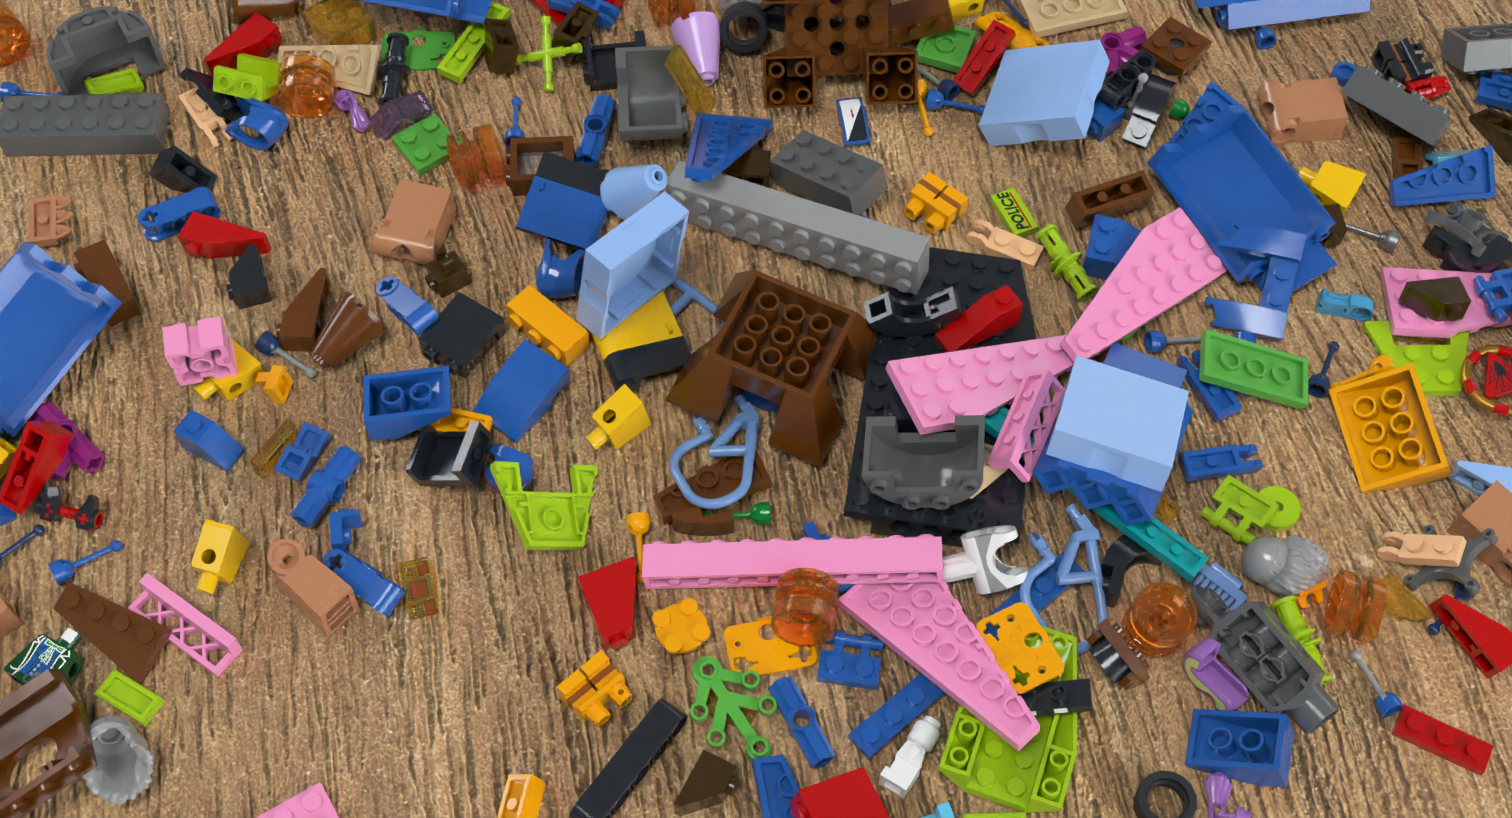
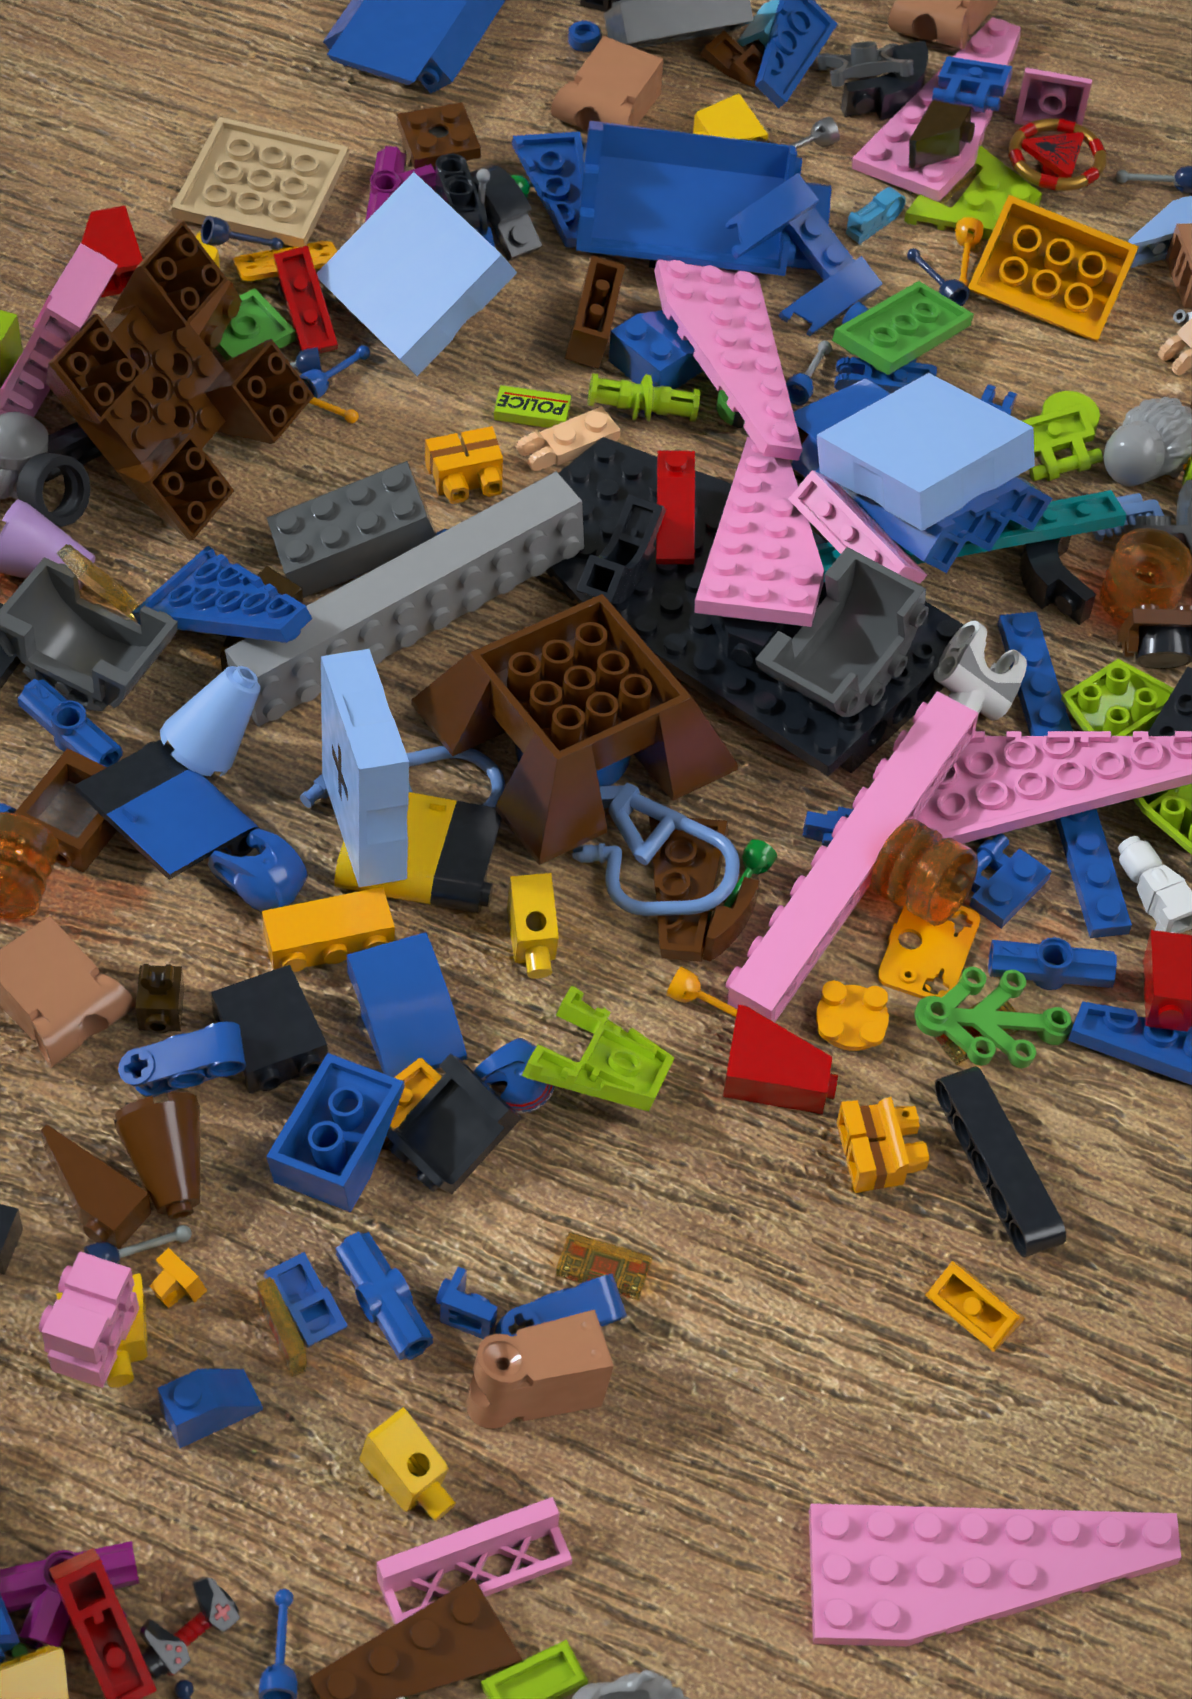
camera: 60 degrees left, 5 degrees down
(707, 784) = (1069, 1094): dark brown slope -> none
(853, 122) = (272, 468): slope -> none
(1012, 650) = (1103, 714): light orange axle -> none
(1085, 534) = (1006, 580): medium blue piece -> none
(1264, 38) = (482, 64): blue hinge -> none

